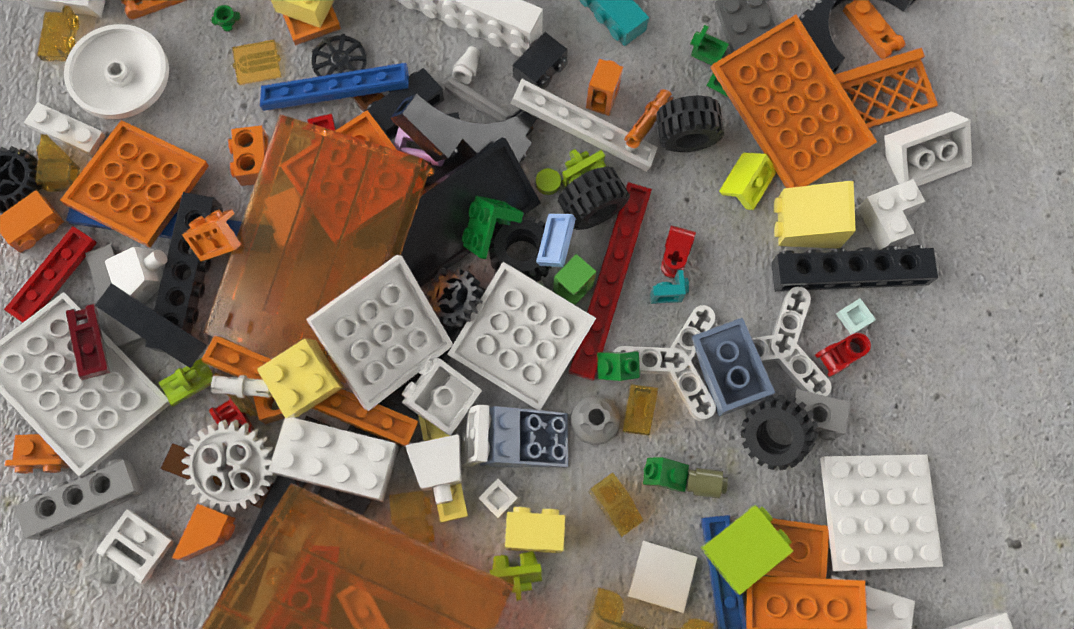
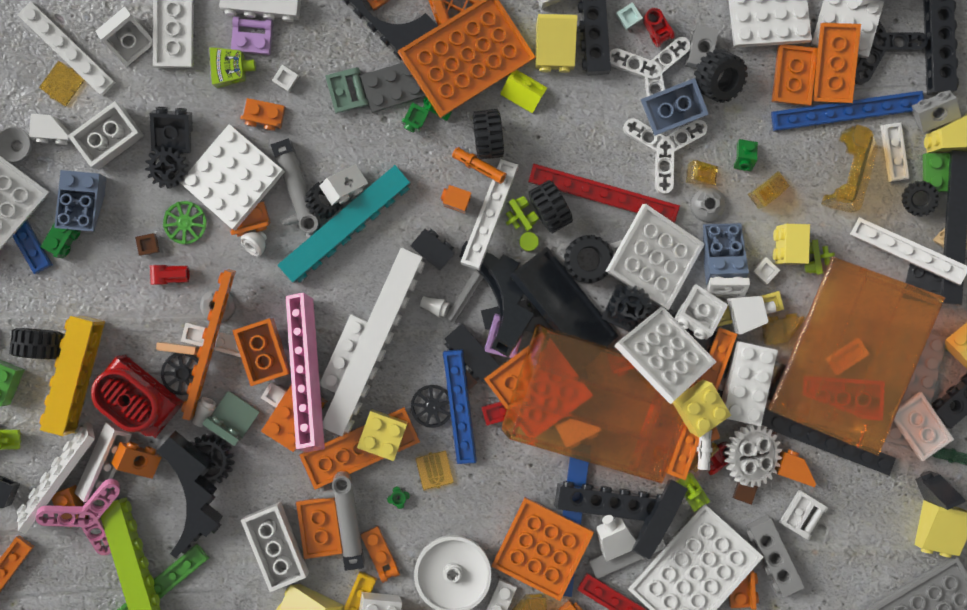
camera: 90 degrees left, 15 degrees up
(87, 342) = (668, 564): dark red plate -> none
(211, 235) = (594, 482): orange bracket -> none
(248, 155) = (516, 460): orange brick -> none
(483, 216) = (570, 284): green bracket -> none
(556, 240) = (588, 233): light blue tile -> none
(574, 280) = (613, 220): bright green panel -> none
(618, 365) = (673, 189): green bracket -> none
(662, 576) = (813, 158): white tile -> none
(667, 293) = (615, 152): teal bracket -> none
(677, 249) = (578, 144): red piece -> none
(706, 482) = (751, 127): olive brick -> none
(747, 549) = (800, 100): lime panel -> none

